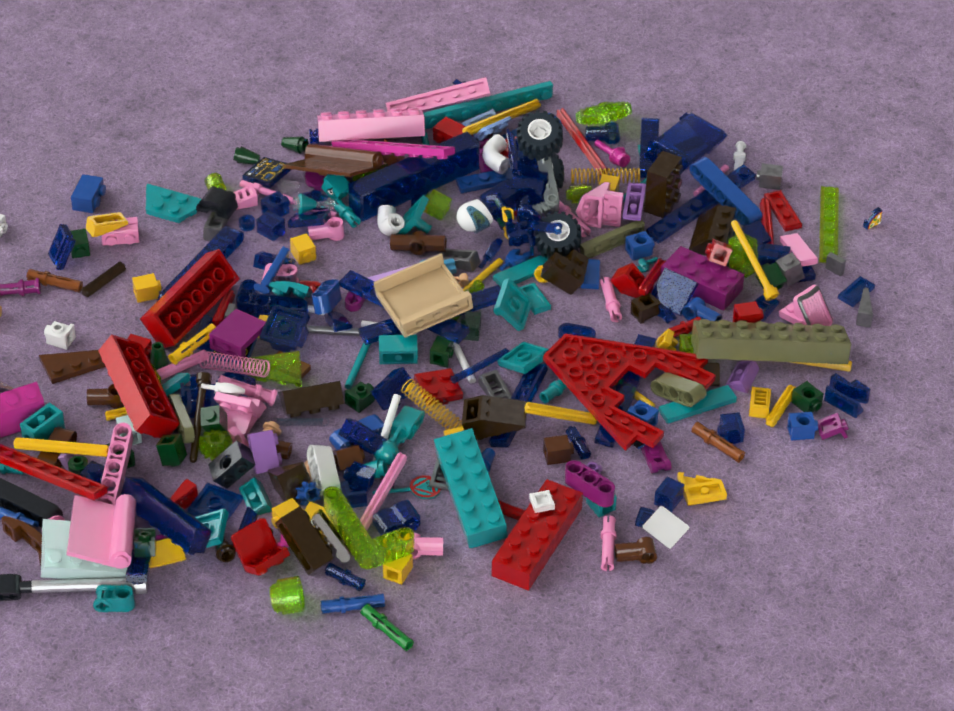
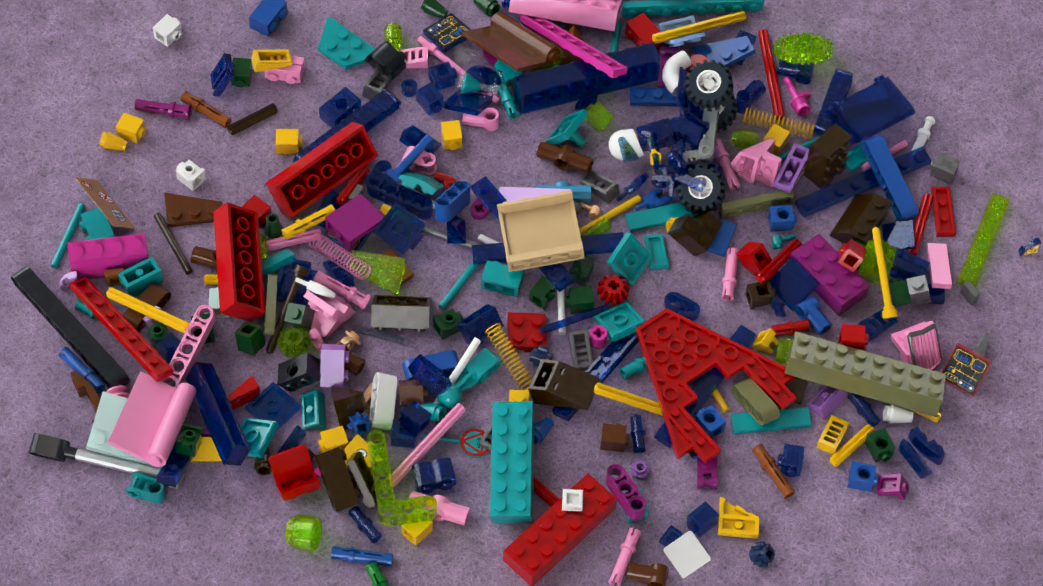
camera: 15 degrees right, 15 degrees up
(13, 431) = (112, 276): none -> dark orange tile
(62, 394) = (173, 244): none -> dark brown bar
(185, 250) = (339, 107): none -> clear blue brick
(388, 220) = (543, 124): white cylinder -> none
(457, 401) = (538, 354): none -> dark blue gear
(479, 348) = (580, 299): none -> dark green brick
(507, 334) = (613, 289): none -> red gear
(508, 373) = (595, 332): none -> dark pink bush
(571, 159) = (748, 96): none -> clear blue piece
(688, 186) = (856, 158): none -> teal tile
(736, 508) = (761, 554): none -> dark blue gear
(779, 374) = (864, 409): none -> clear blue pin
(811, 371) = (896, 414): none -> white cone
(853, 293) = (974, 331): clear blue tile -> none
(860, 319) = (966, 369): none -> black tile

